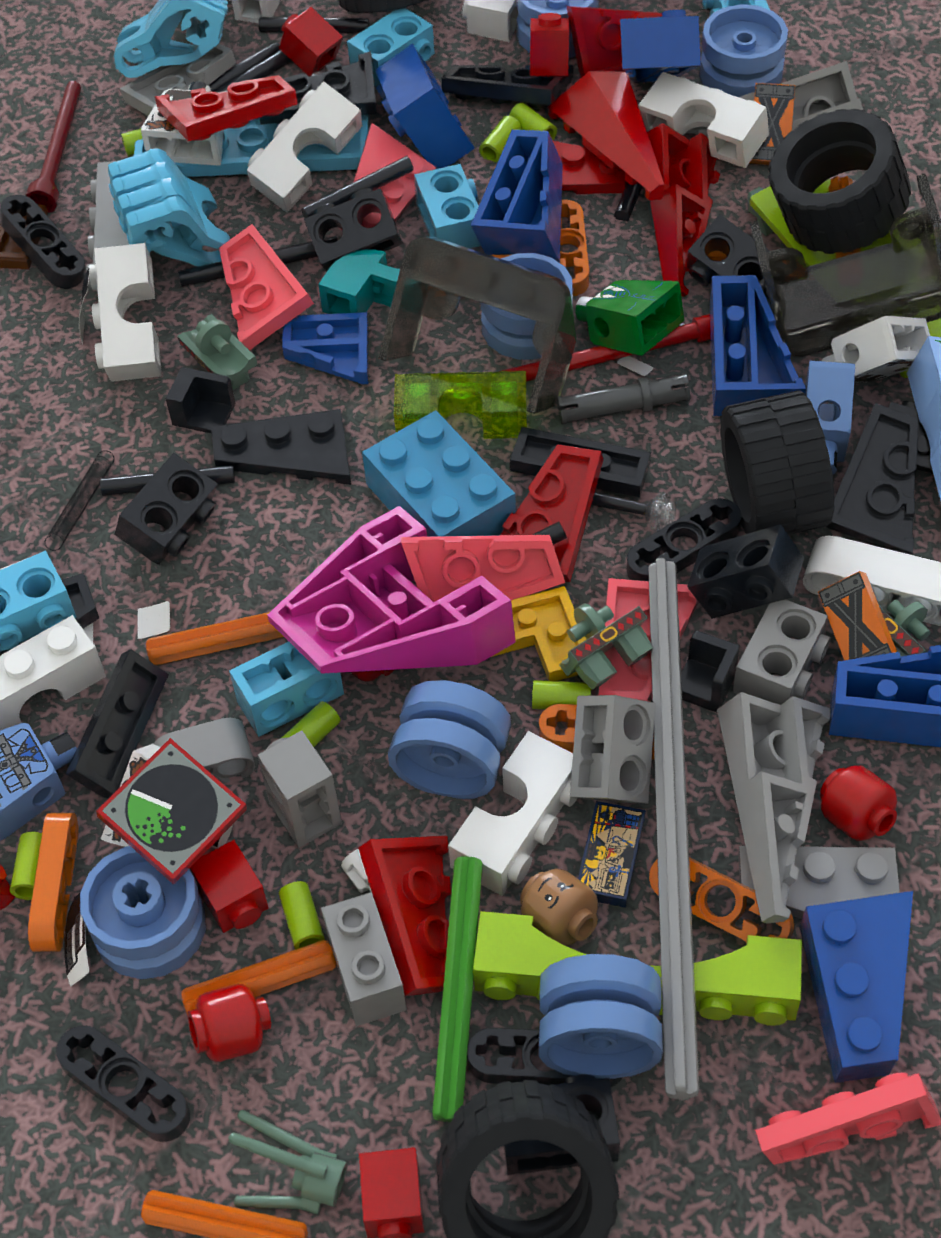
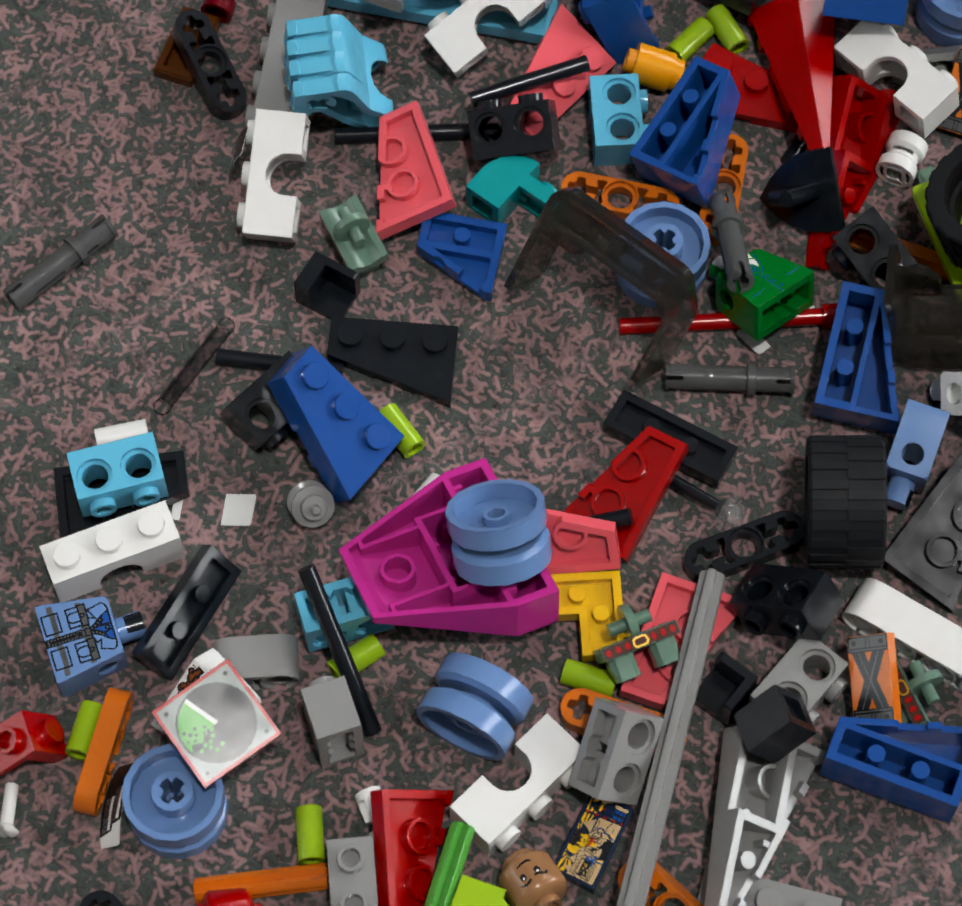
camera: 10 degrees right, 10 degrees up
(211, 639) = (287, 543): orange axle -> none
(228, 594) = (310, 503): none -> light grey wheel
(229, 887) = (254, 796): red brick -> none
(234, 507) = (334, 422): none -> blue wedge
(284, 704) = (339, 648): none -> black bar
(304, 511) = (412, 441): none -> lime piece
(433, 555) = (499, 532): none -> medium blue wheel
(438, 480) = (530, 432): dark azure brick -> none
(476, 159) = (655, 66): none -> light orange brick
(491, 396) = (540, 337): clear neon green arch -> none
(586, 269) = (729, 232): none -> dark grey pin
(650, 225) = (807, 192): none -> black shield
(729, 187) = (902, 155): none -> white wheel
(772, 683) = (774, 723): none -> black panel
(858, 802) = (822, 849): red head -> none

